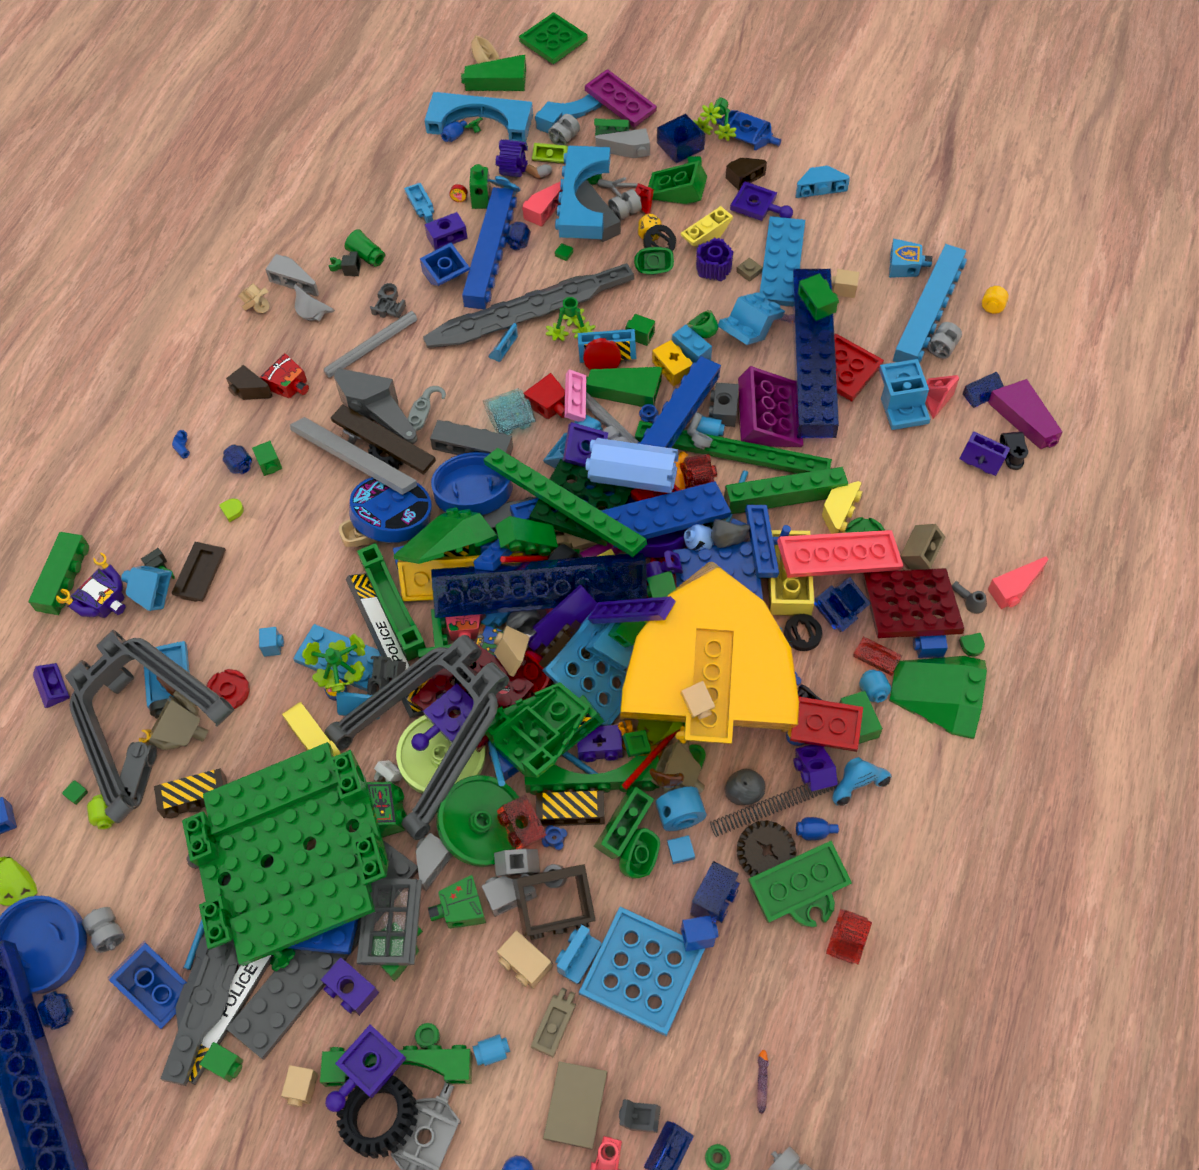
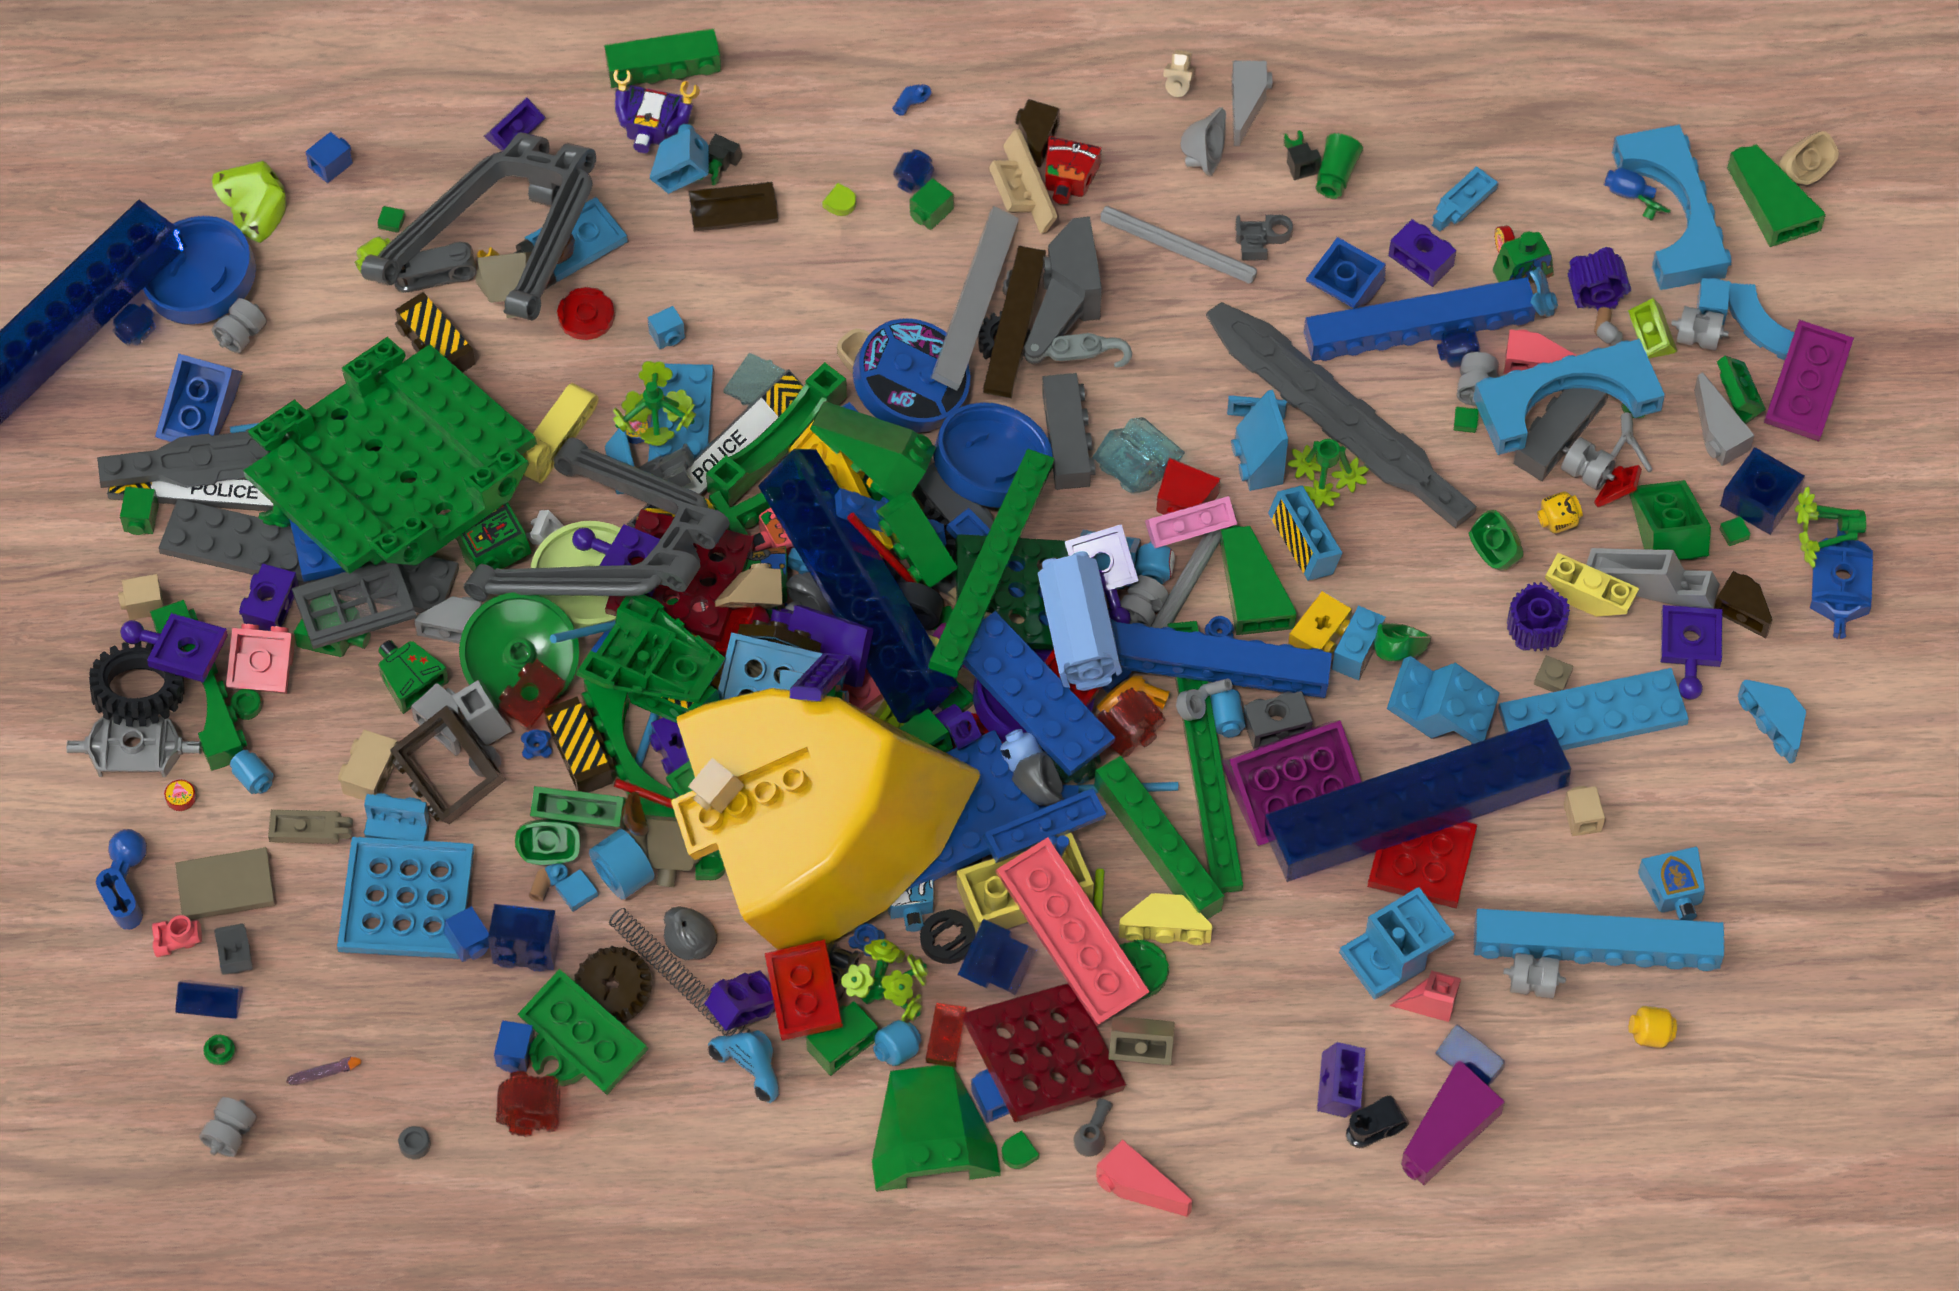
camera: 65 degrees right, 0 degrees up
(281, 405) = (1021, 183): none -> tan bracket
(338, 604) = (752, 379): none -> clear light blue piece
(398, 1010) = (260, 658): none -> coral plate
(484, 1114) = (180, 795): none -> tile
(539, 340) = (1261, 444): none -> dark azure slope
(542, 233) = (1474, 368): none -> light grey wheel
(553, 38) = (1898, 241): green plate -> none
(602, 354) = (1280, 532): red tile -> none
(643, 328) = (1361, 567): green brick -> none
(647, 240) = (1550, 548): black piece -> none
(663, 866) = (546, 878): none -> arm
(710, 198) = (1657, 575): none -> light grey slope
(794, 933) = (513, 1046): none -> blue brick
(815, 828) = (663, 1031): blue plant -> none
(818, 296) = (1493, 761): green brick -> none
(833, 682) = (892, 987): none -> lime plant
(843, 1033) = (414, 1142): none -> dark grey tile

